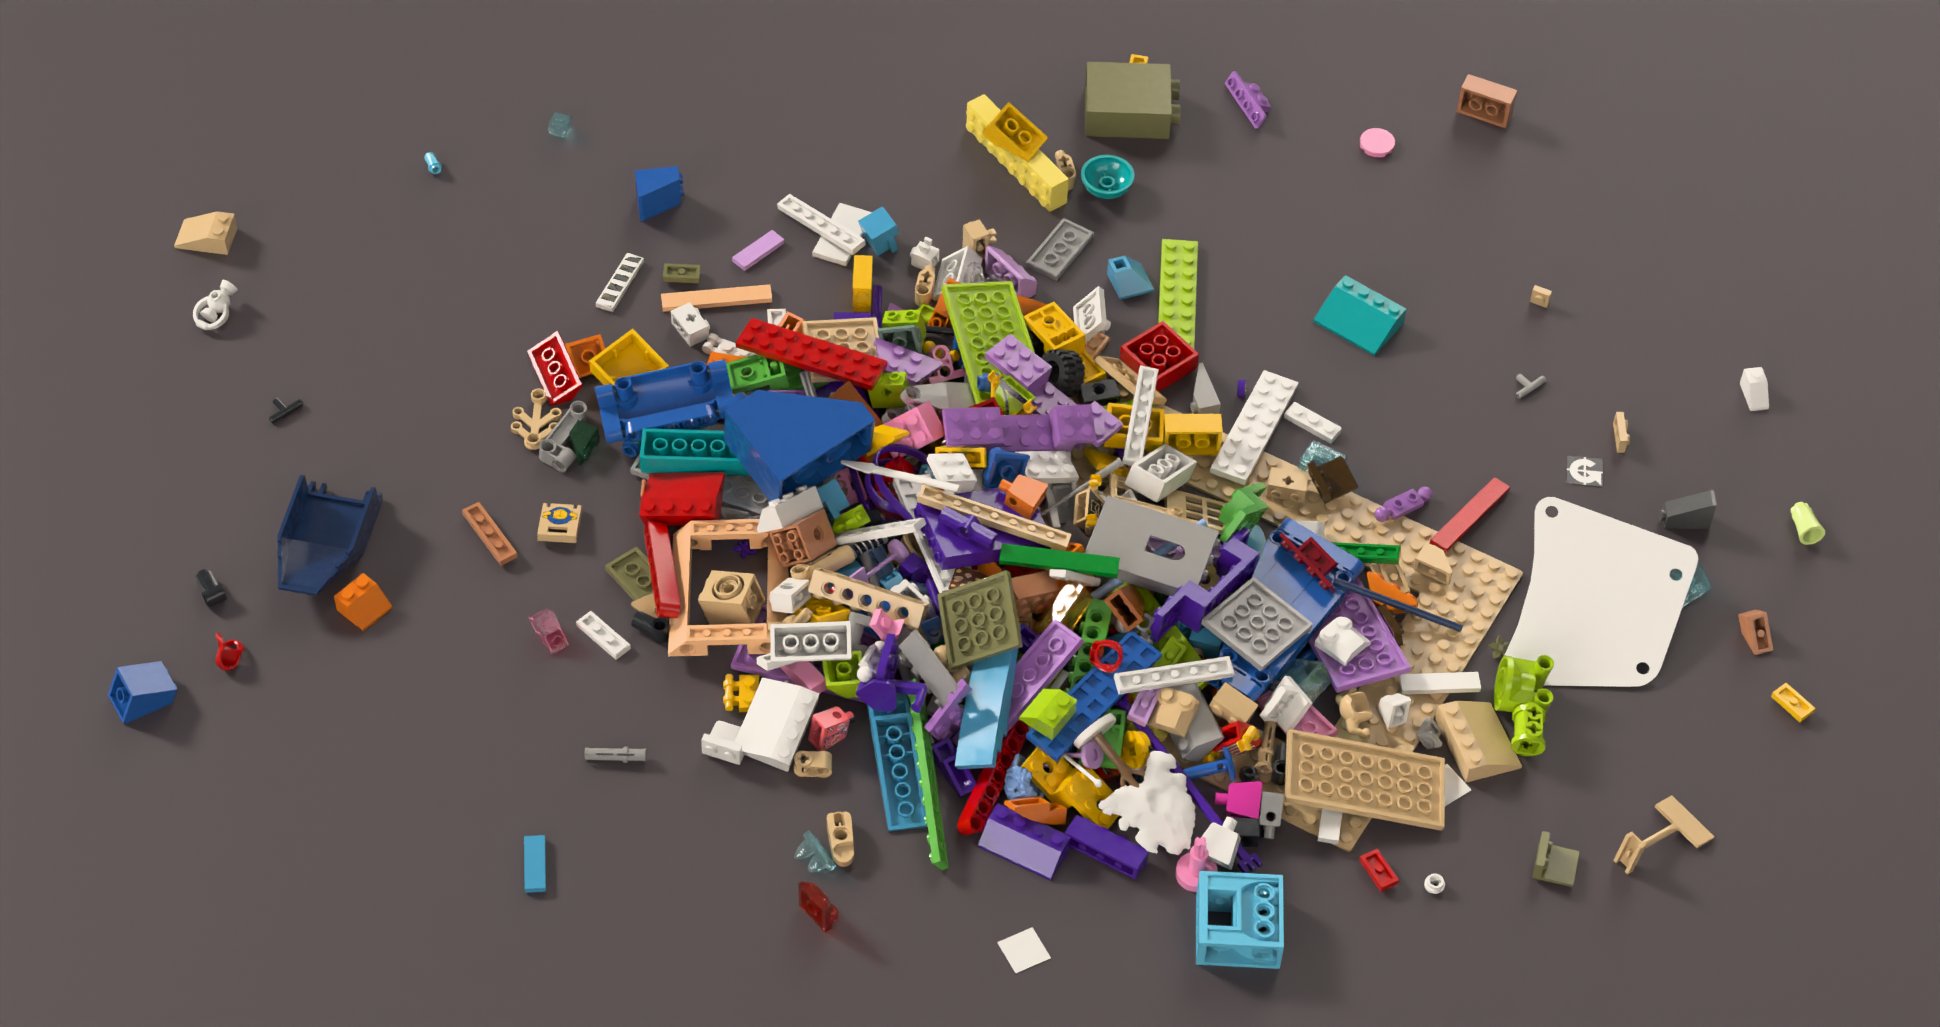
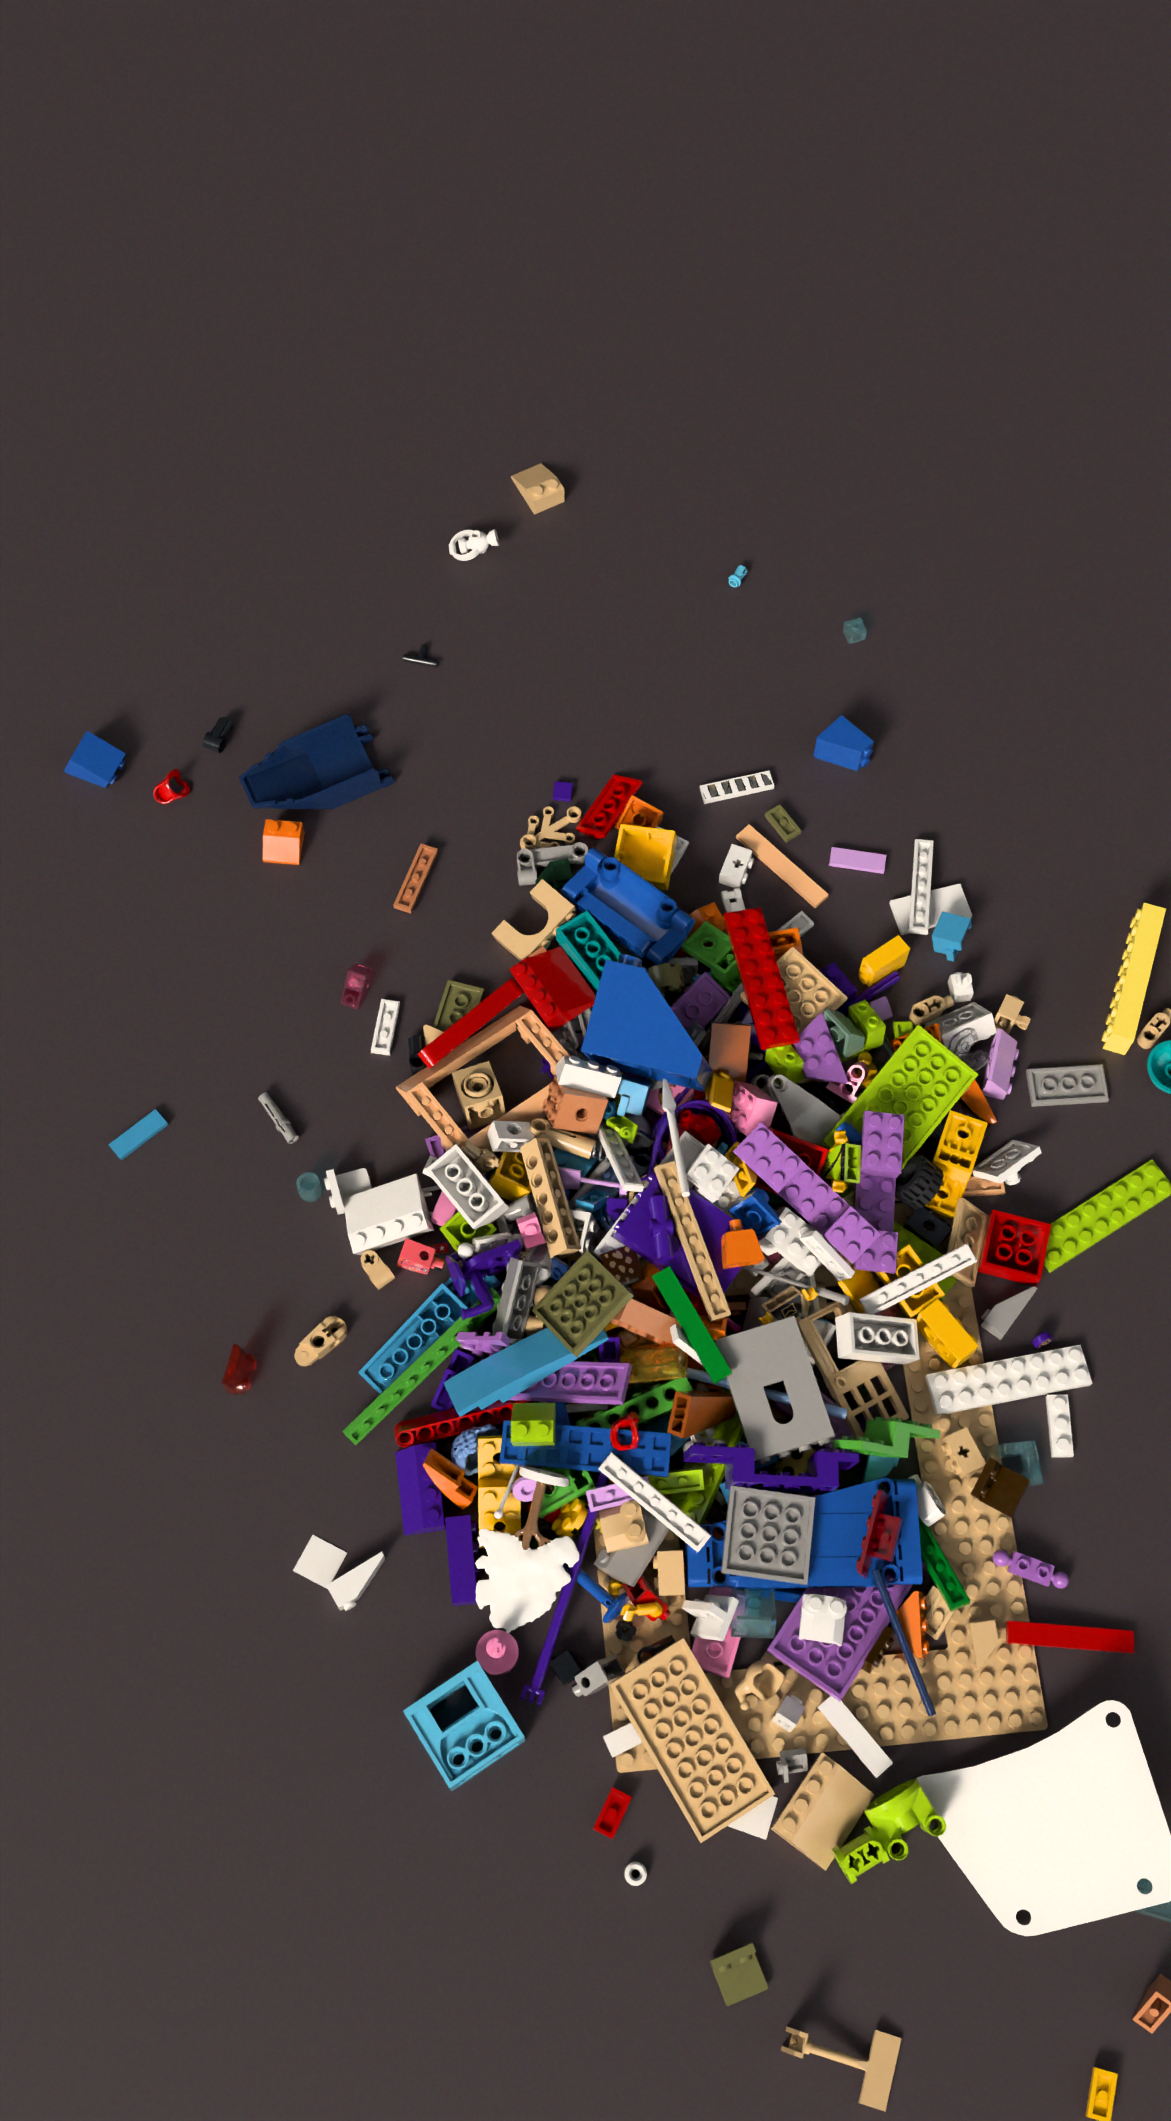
camera: 55 degrees right, 15 degrees up
(509, 392) = (562, 791): none -> dark purple tile
(559, 518) = (469, 915): tan container -> none
(616, 451) = (559, 912): none -> tan arch
(699, 766) = (309, 1187): none -> clear light blue piece
(747, 689) = (414, 1166): yellow plate -> none
(811, 846) = (297, 1329): clear light blue tile -> none
(1014, 133) = (1139, 964): yellow slope -> none
(1065, 933) = (351, 1586): none -> white slope
(1074, 453) = (827, 1255): none -> white plate
(1128, 277) = (1083, 1163): dark azure slope -> none
(1222, 842) = (526, 1657): white torso -> none
(1242, 800) = (592, 1643): dark pink torso -> none
(1265, 752) = (658, 1633): tan pin -> none
(1499, 647) = (940, 1763): olive plant -> none

